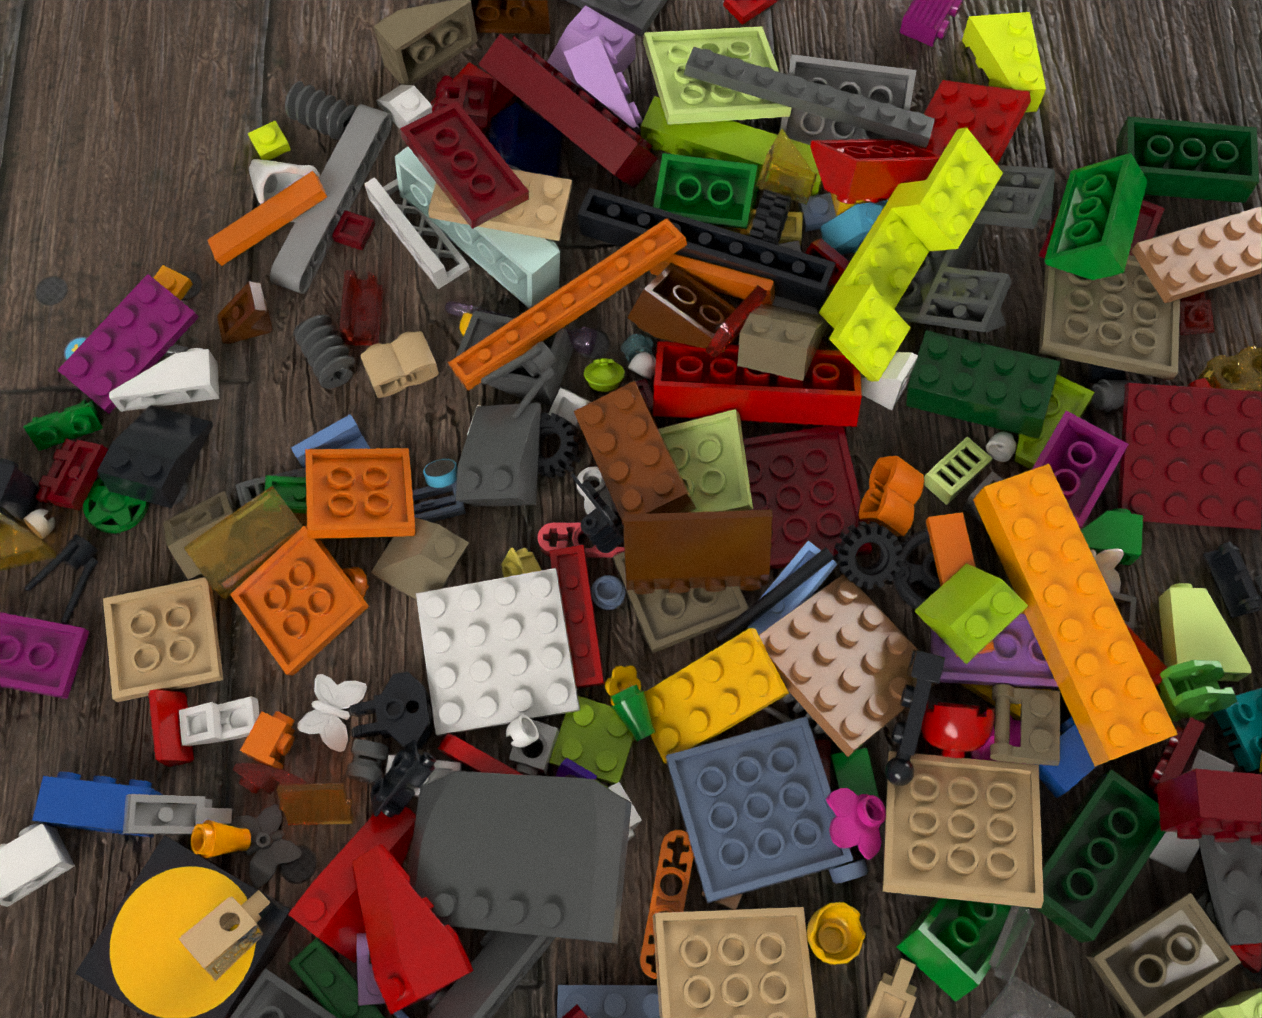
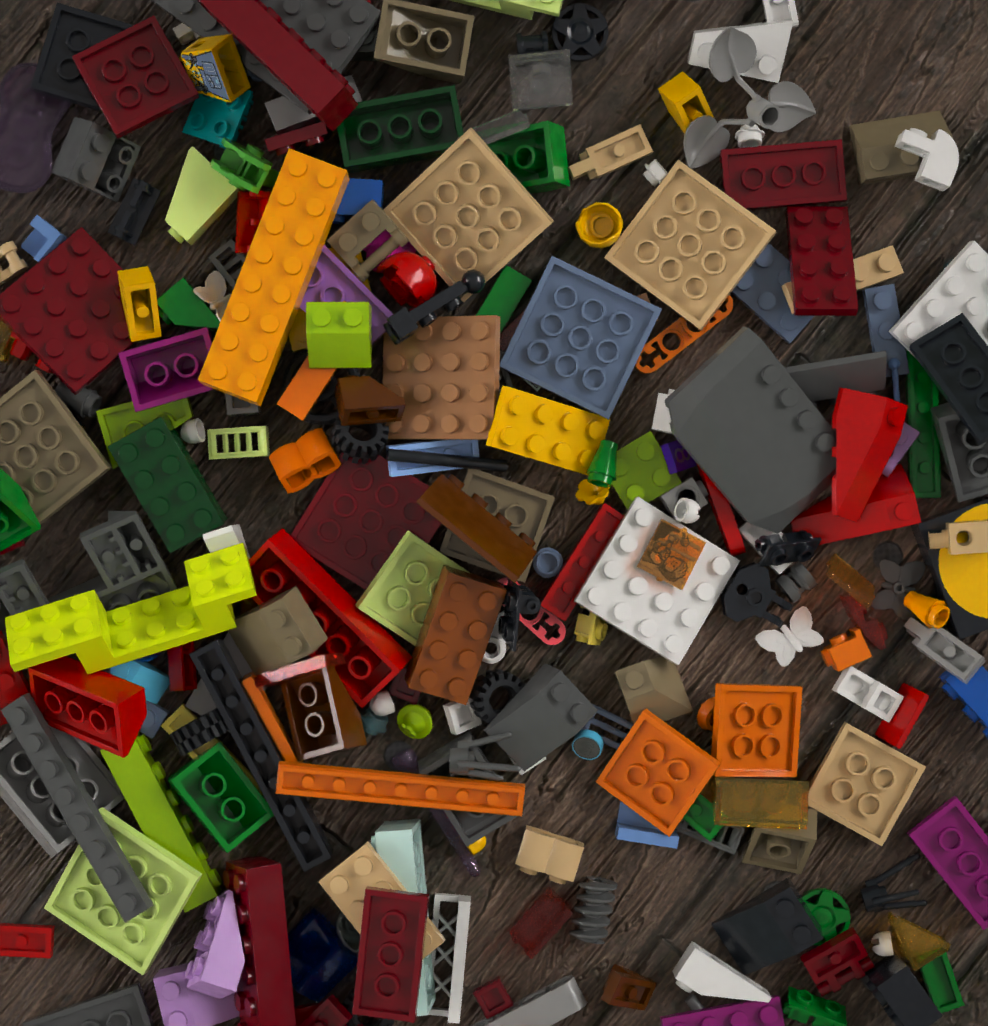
camera: 140 degrees left, 20 degrees up
(503, 681) = (671, 554): none -> clear orange piece
(786, 171) = (151, 759): clear yellow slope -> none
(849, 871) = (556, 250): sand blue tile -> none
(856, 821) = (532, 276): dark pink plate -> none
(891, 580) = (366, 401): none -> reddish brown slope
(1155, 499) = (139, 303): none -> yellow slope

